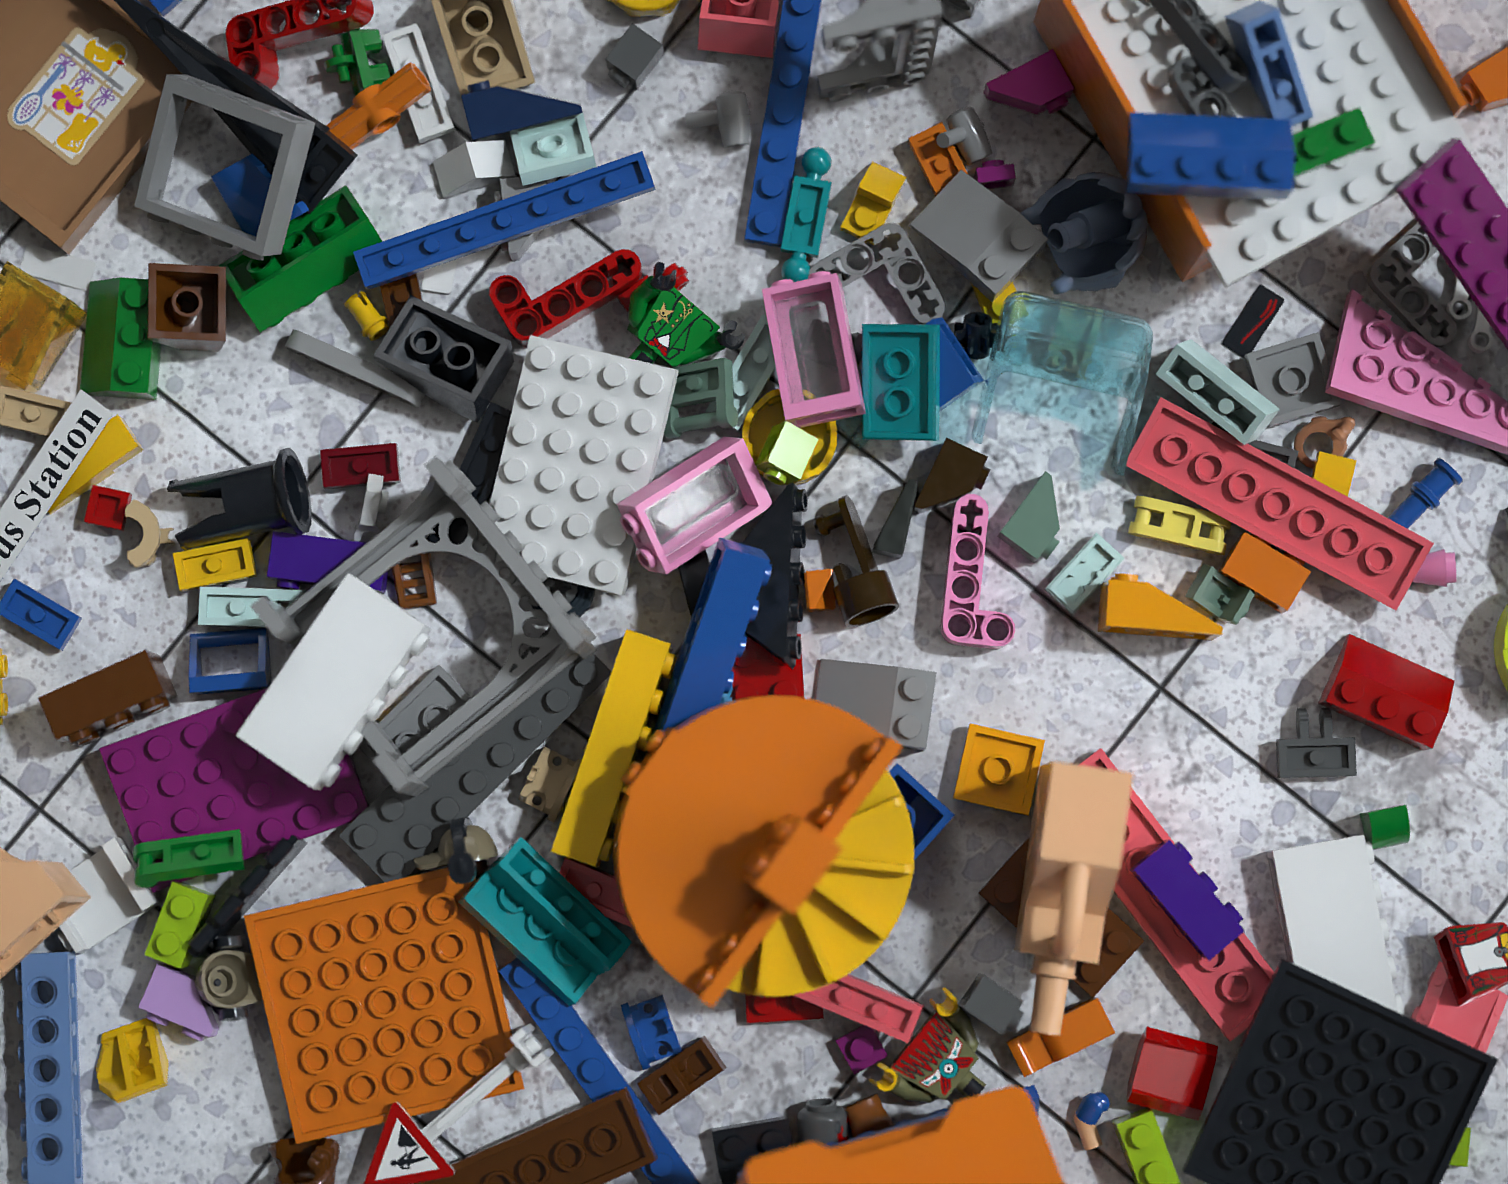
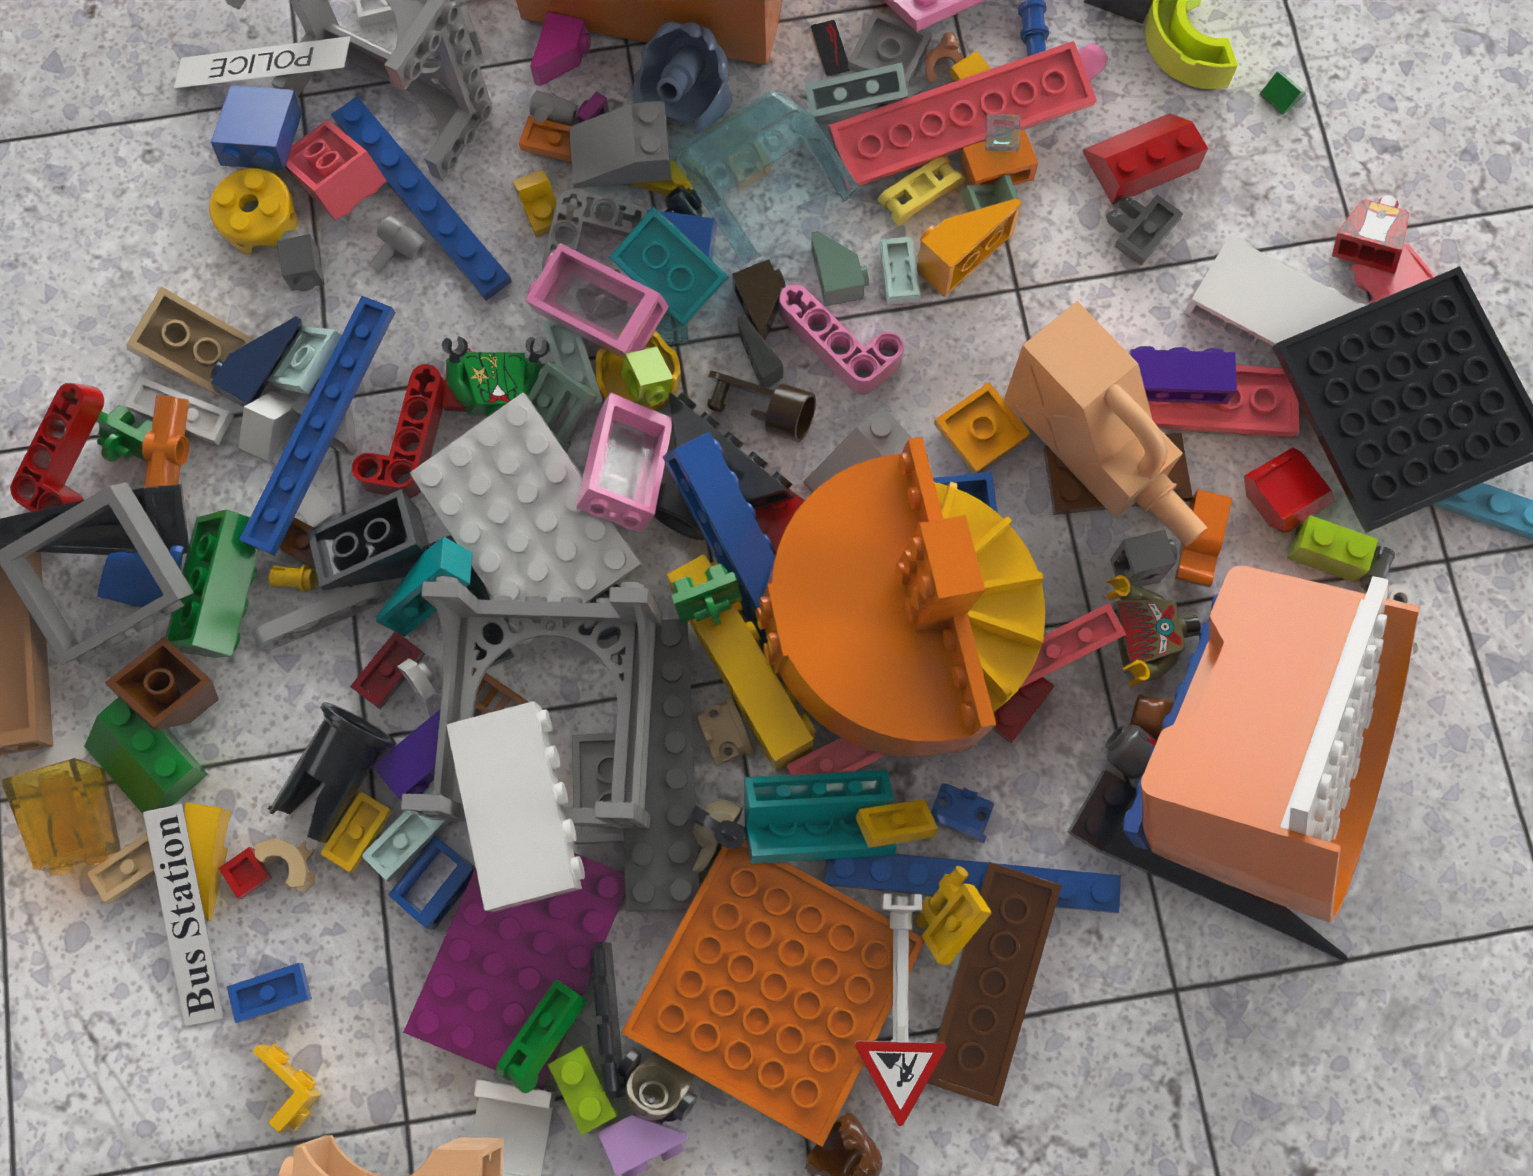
camera: 45 degrees left, 10 degrees down
(108, 698) = (373, 993): reddish brown brick -> none
(465, 438) = (406, 606): none -> teal slope
(556, 1102) = (955, 923): none -> yellow plate
(593, 987) = (896, 823): none -> yellow plate
(630, 685) = (706, 598): none -> green hips
(681, 1075) = (1011, 820): reddish brown slope -> none
(806, 214) = (503, 242): teal plate -> none
(819, 590) = (756, 441): orange slope -> none
(861, 1048) = (1096, 679): magenta plate -> none
(1087, 1117) = (1270, 560): arm -> none
(1284, 557) = (1002, 133): none -> clear light blue plate
(1386, 826) = (1233, 221): green brick -> none

